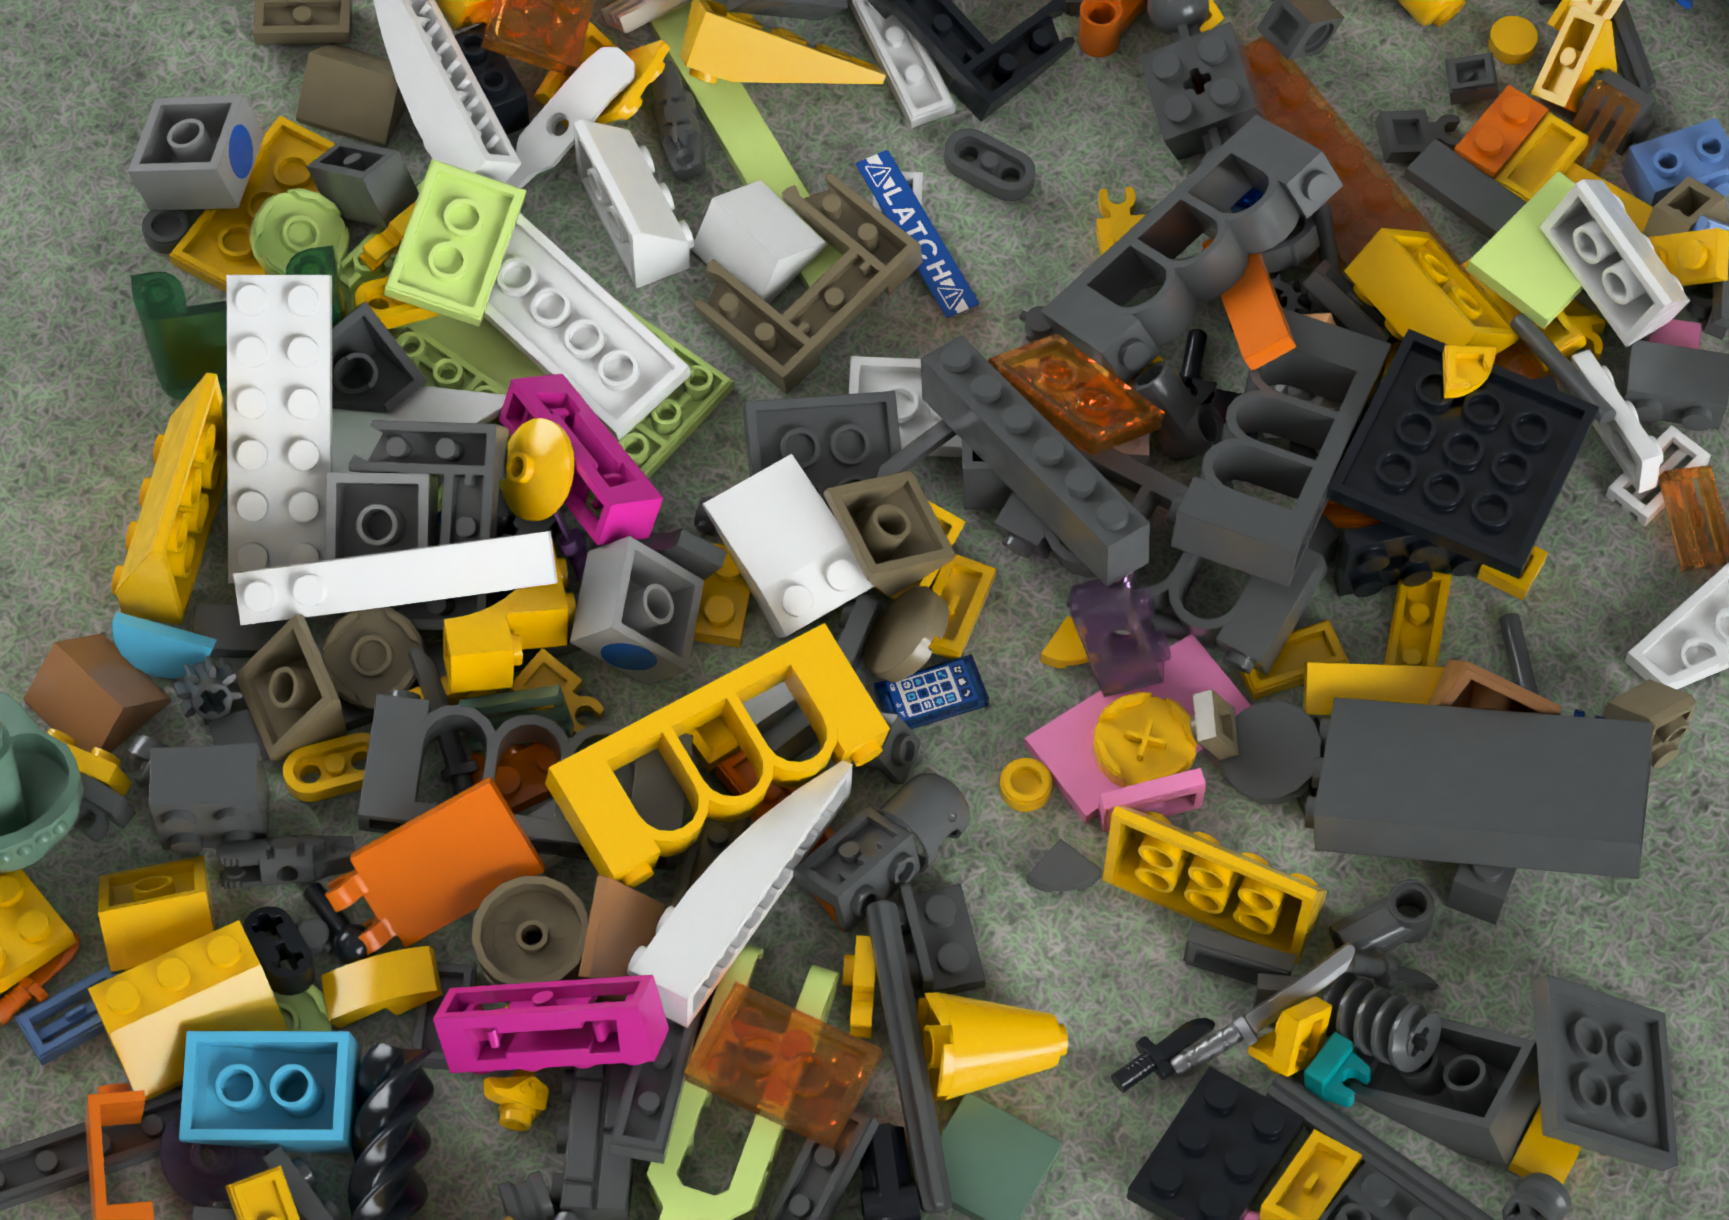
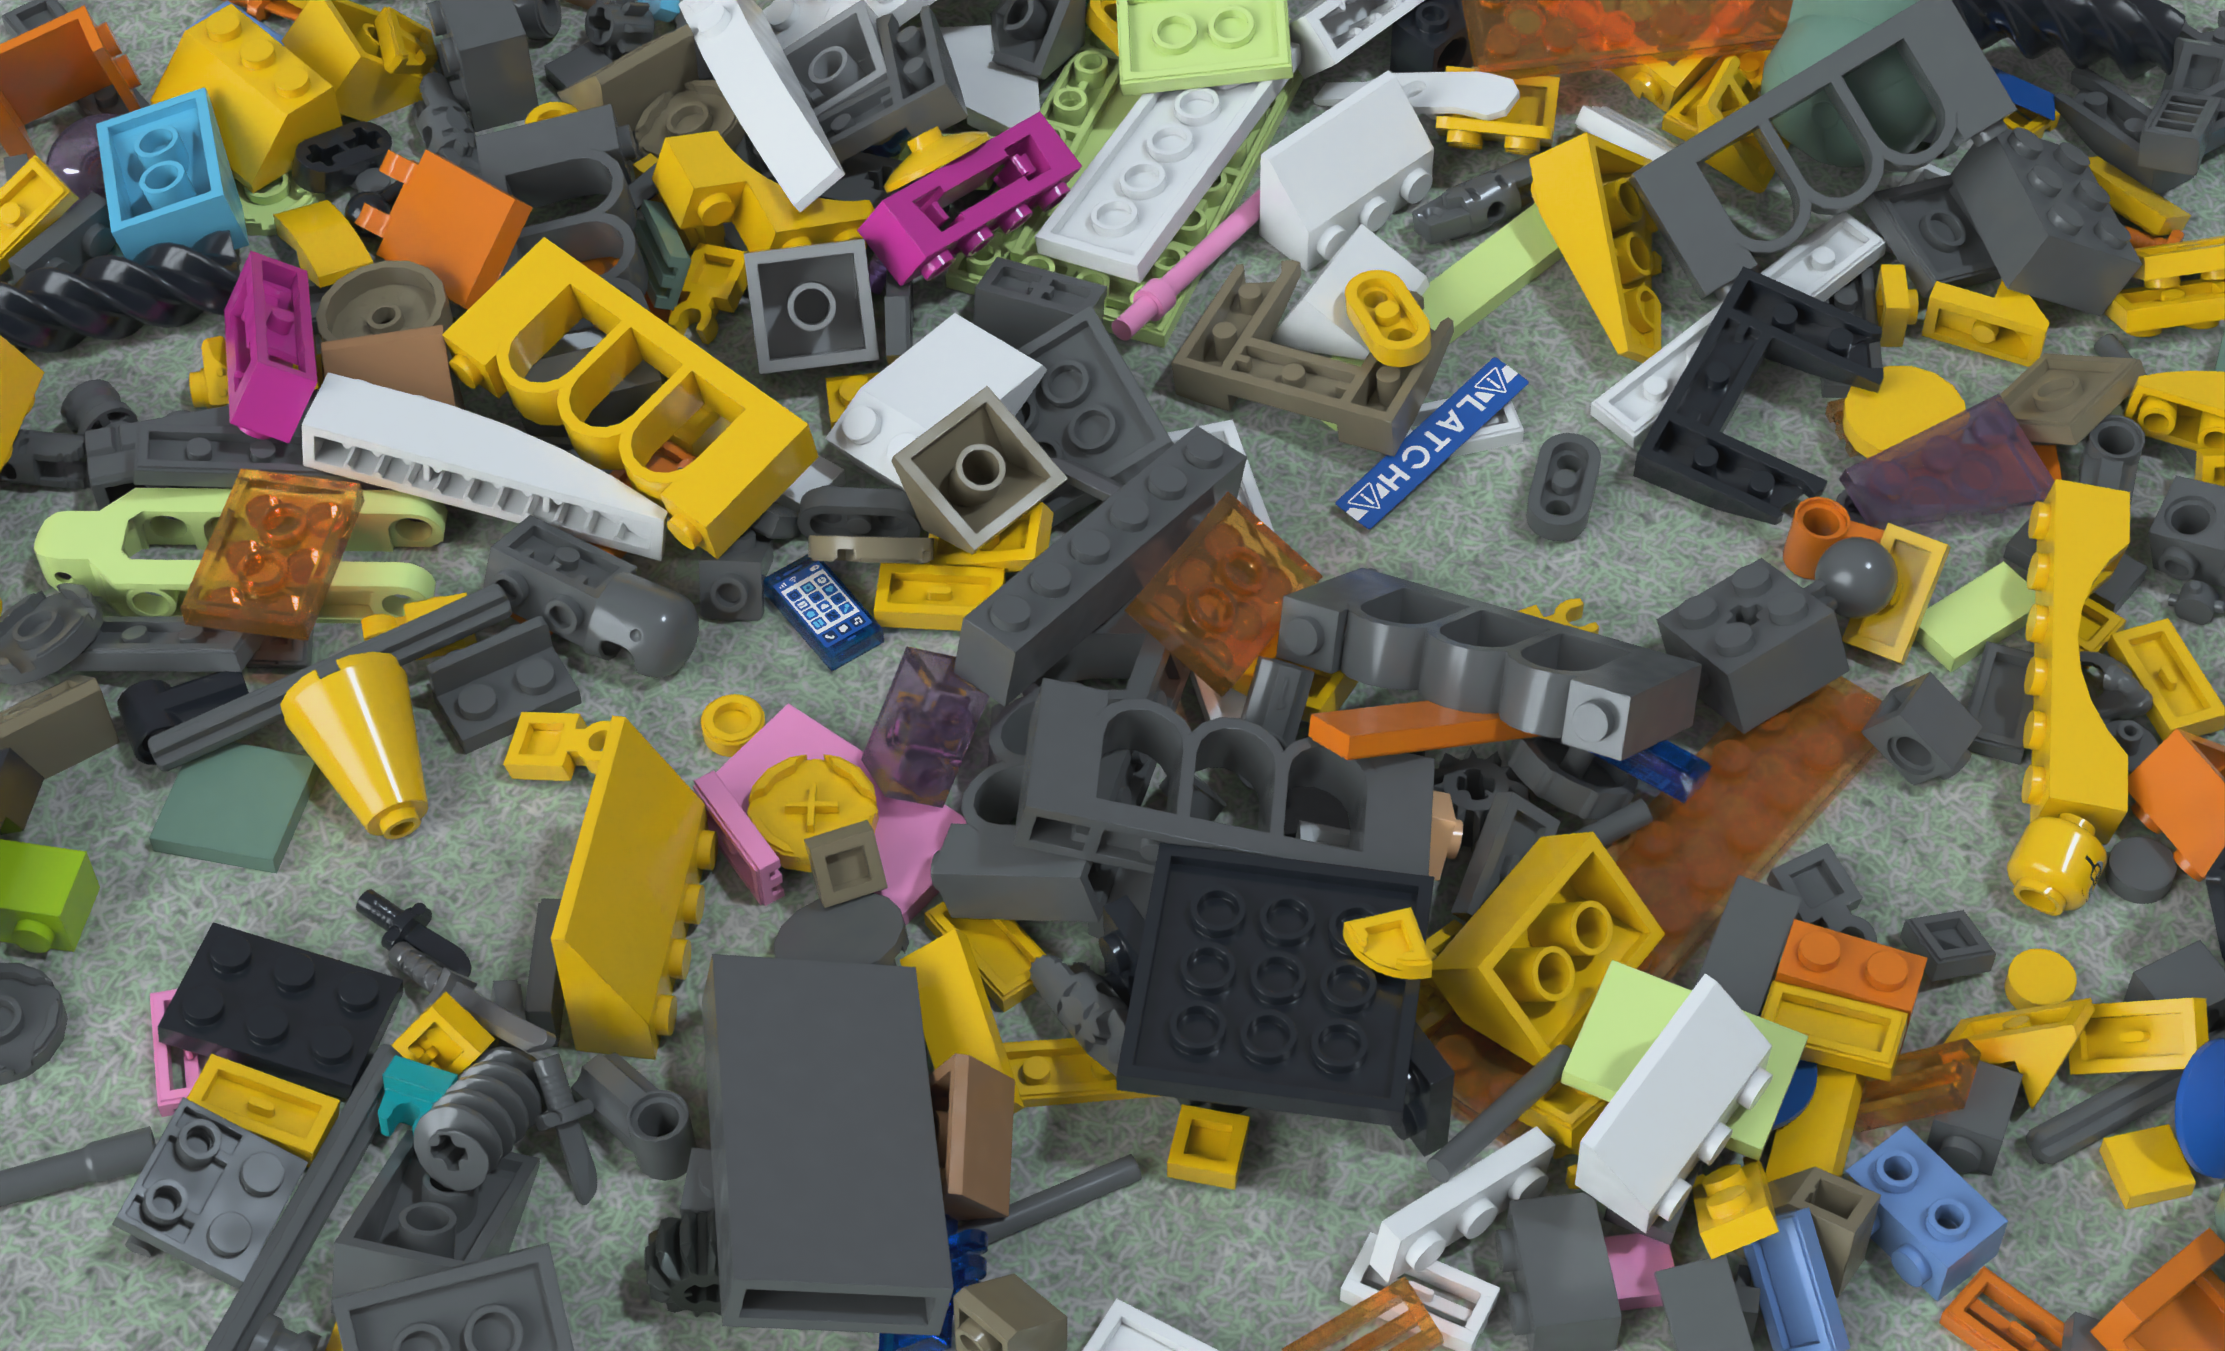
camera: 75 degrees right, 10 degrees down
(168, 866) = (404, 43): none -> yellow tile
(686, 455) = (1027, 301): none -> dark grey hinge
(711, 365) = (1160, 294): none -> bright pink bar
(824, 209) = (1388, 318): none -> yellow plate
(1016, 912) = (553, 745): none -> yellow plate
(1394, 599) = (1083, 1006): none -> dark grey hinge
(1538, 906) = (684, 1263): none -> pearl dark grey gear
(1670, 36) = (2147, 1166): none -> yellow tile

